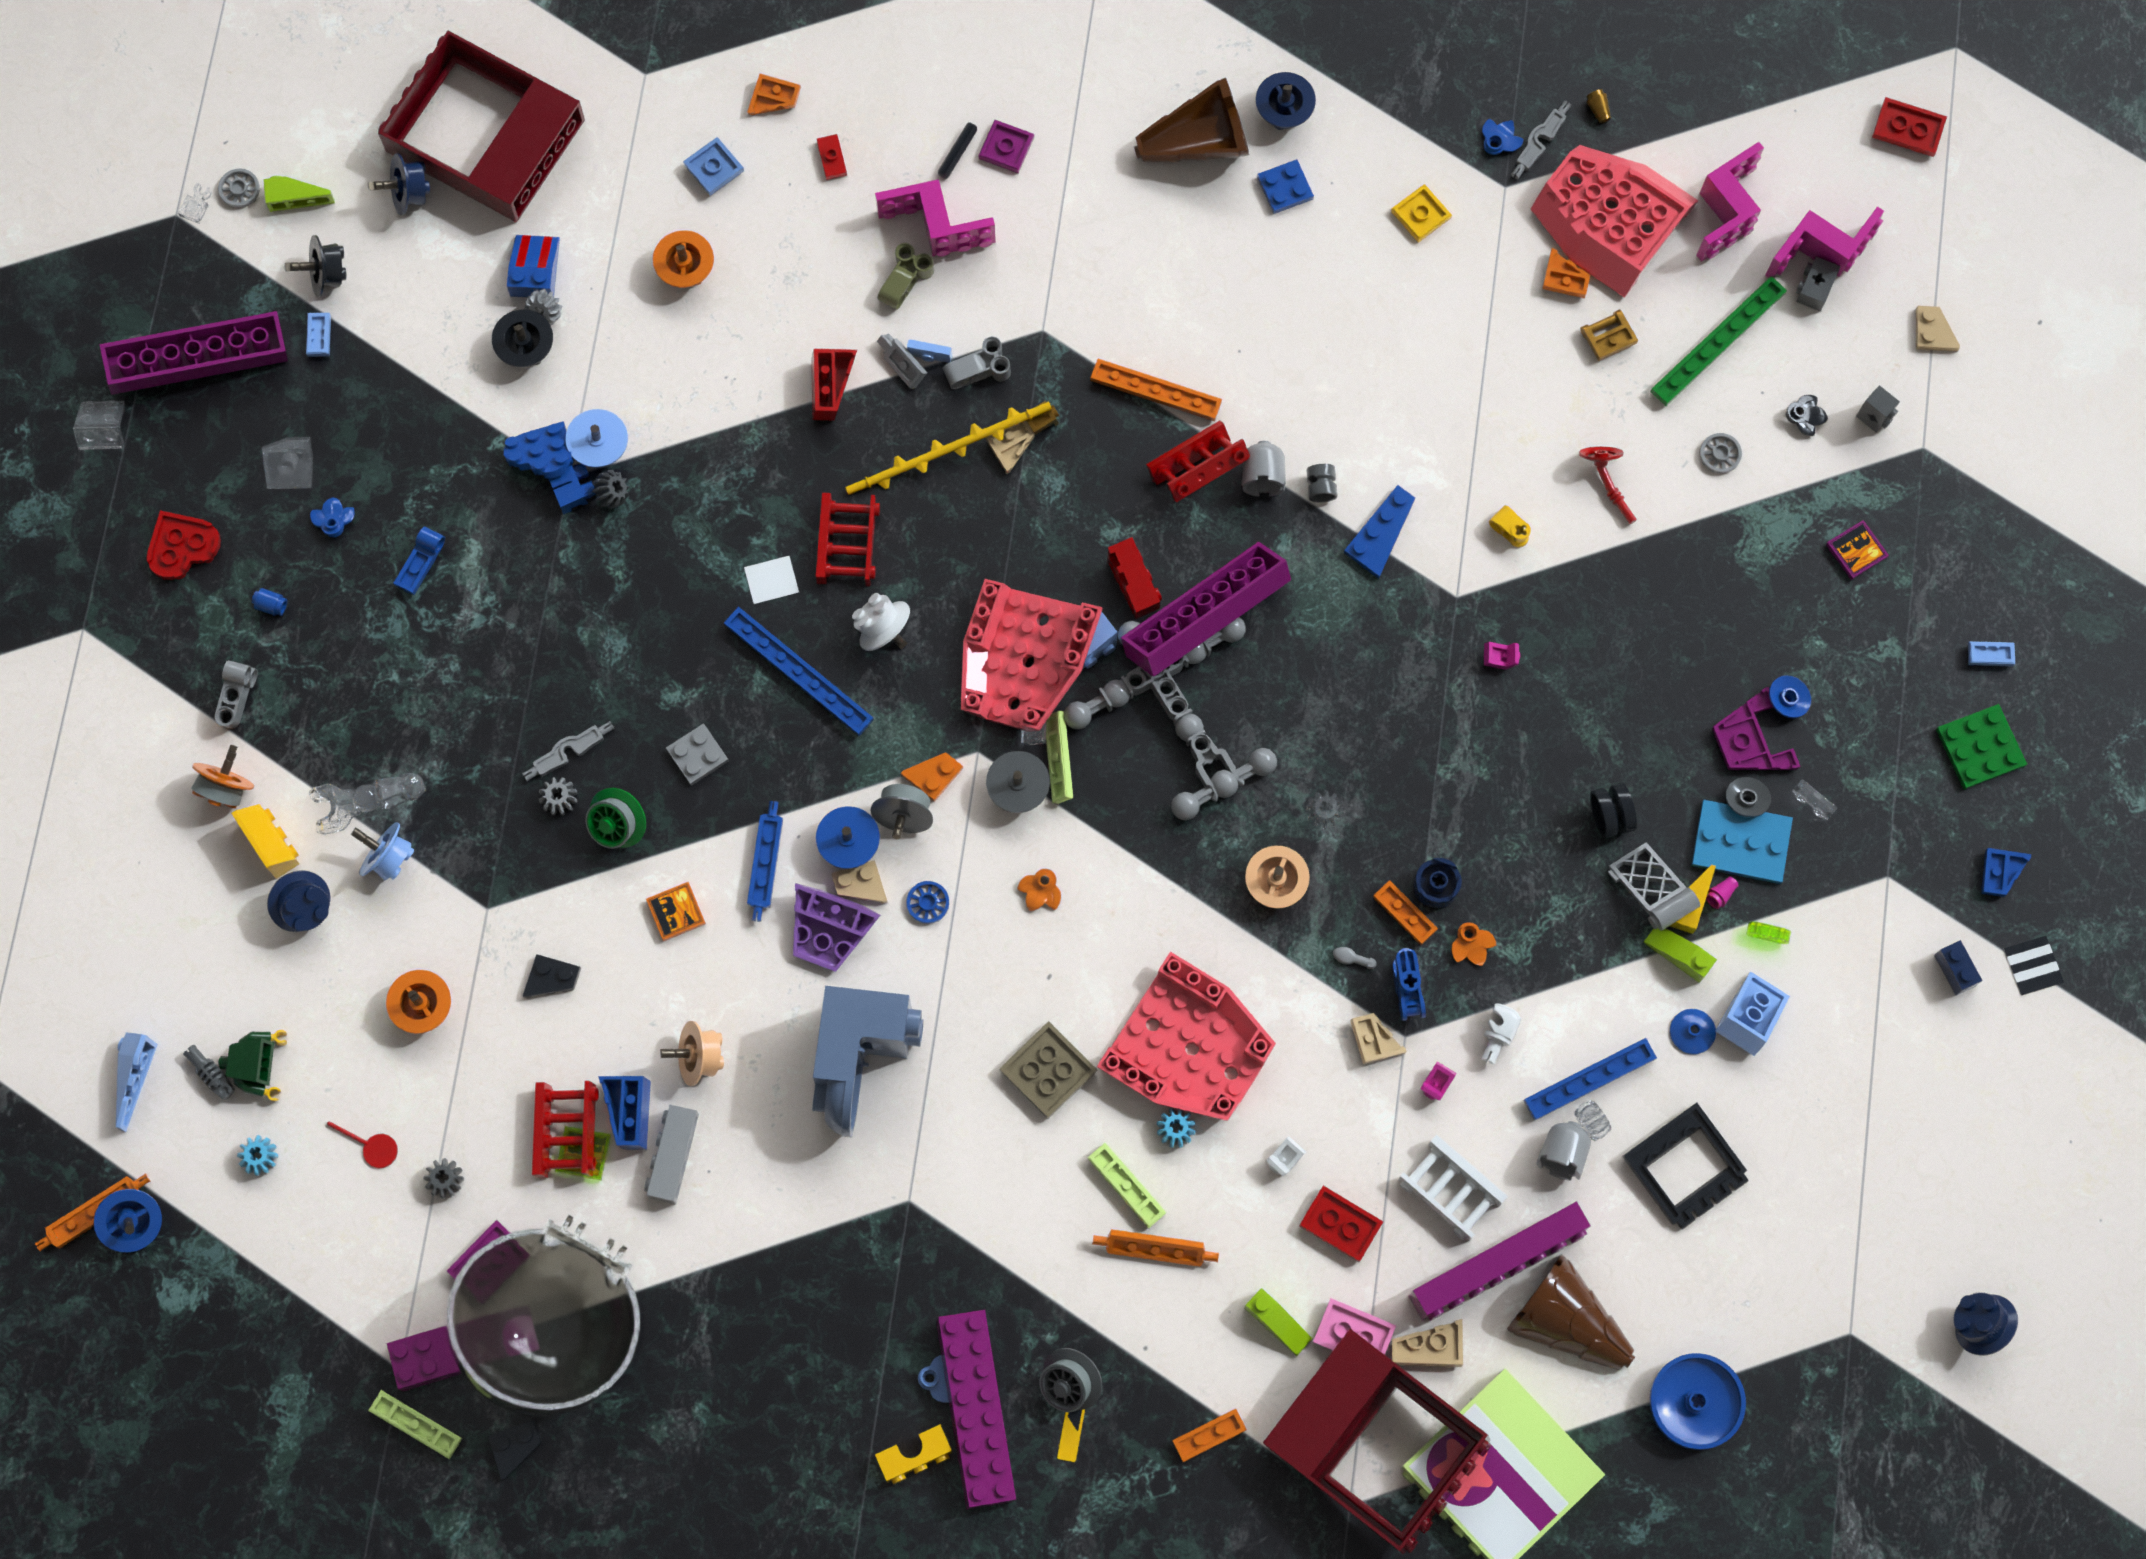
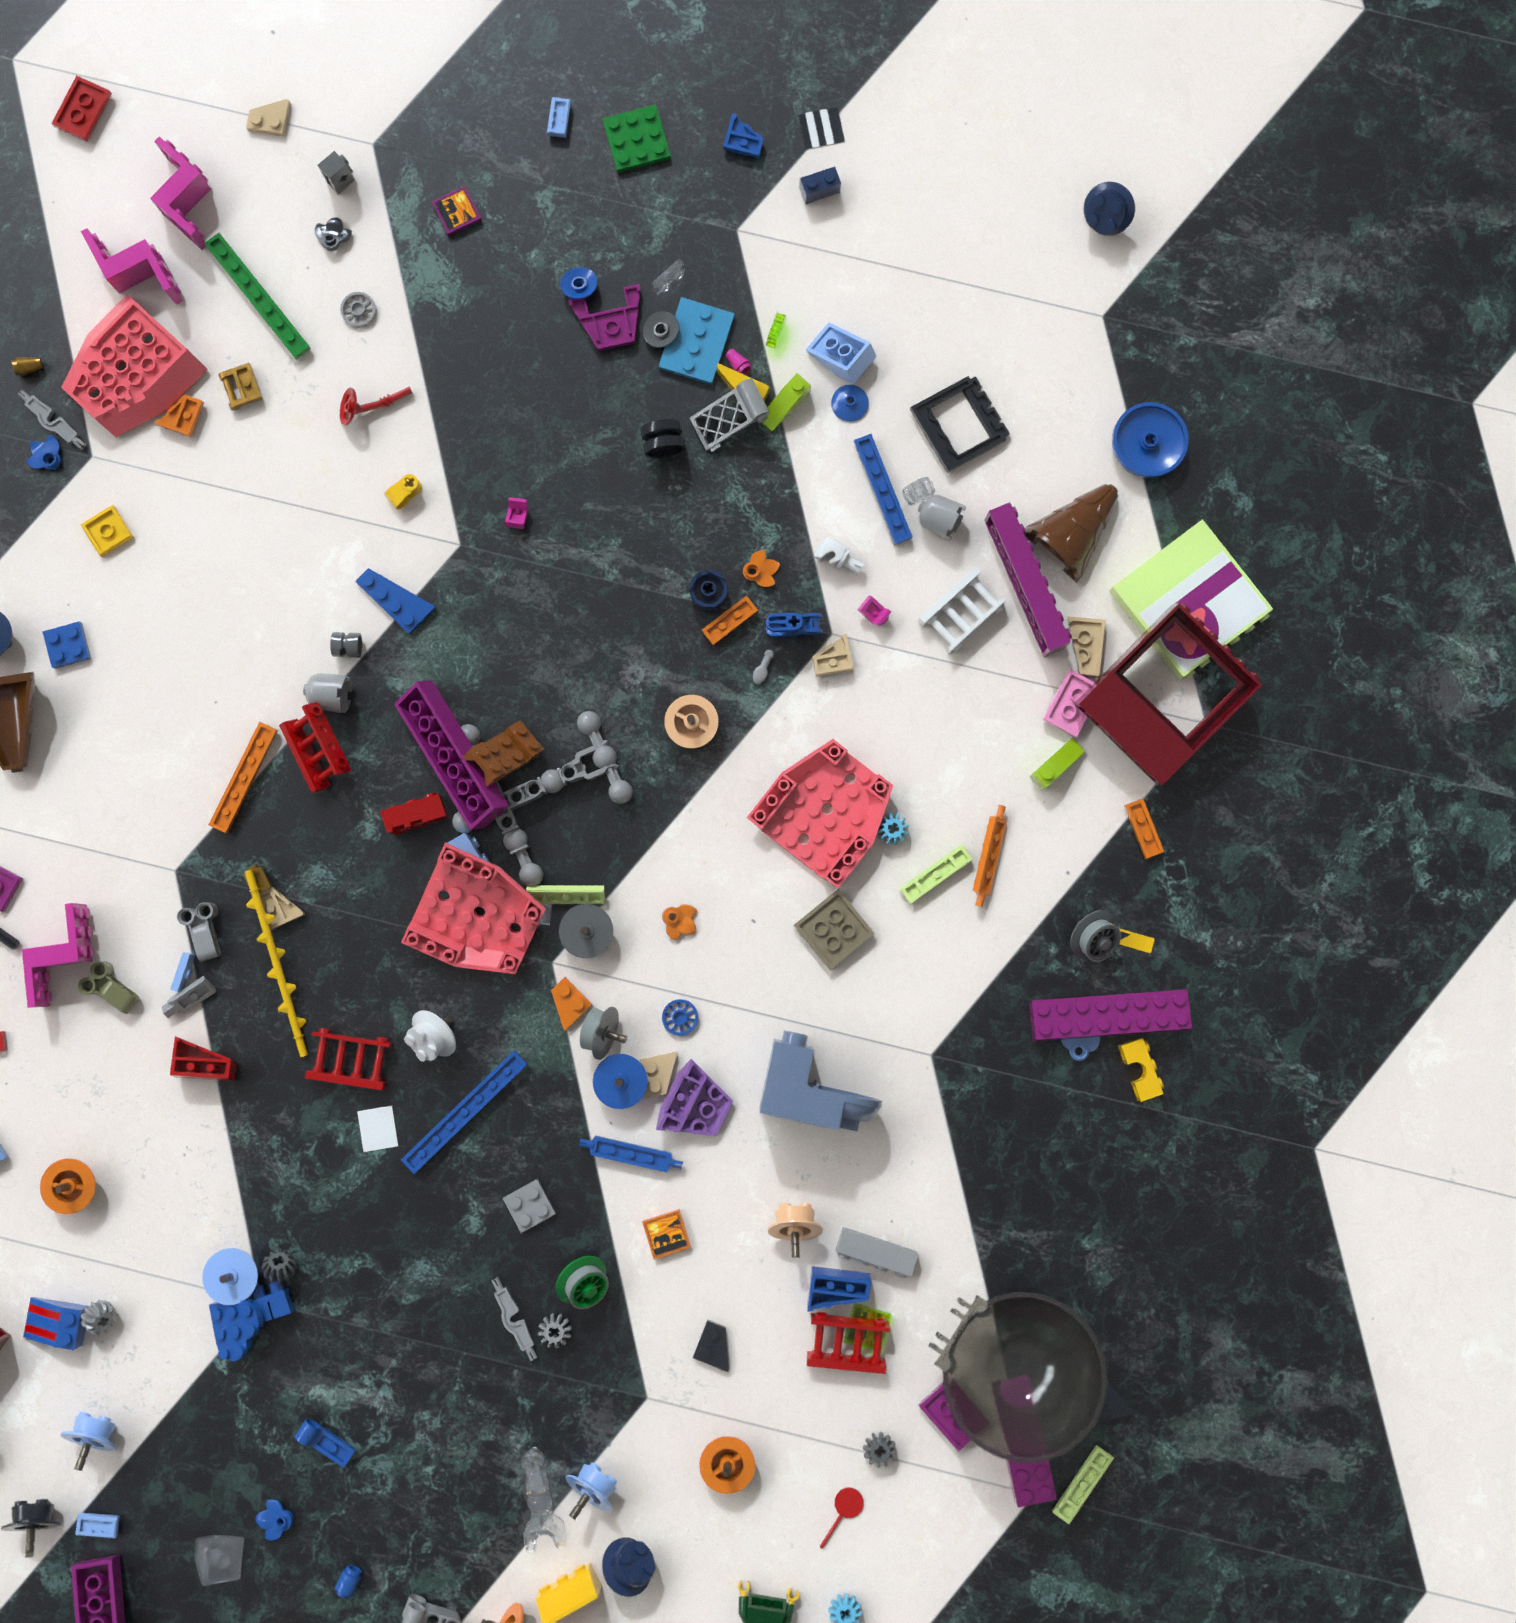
camera: 85 degrees left, 10 degrees up
(416, 314) = (90, 1434): none -> light blue piece
(522, 338) = (126, 1338): black piece -> none
(1215, 668) = (505, 752): none -> dark orange piece
(1285, 1157) = (925, 742): white bracket -> none
(1341, 1223) = (982, 703): red plate -> none
(1813, 294) = (216, 206): dark grey brick -> none

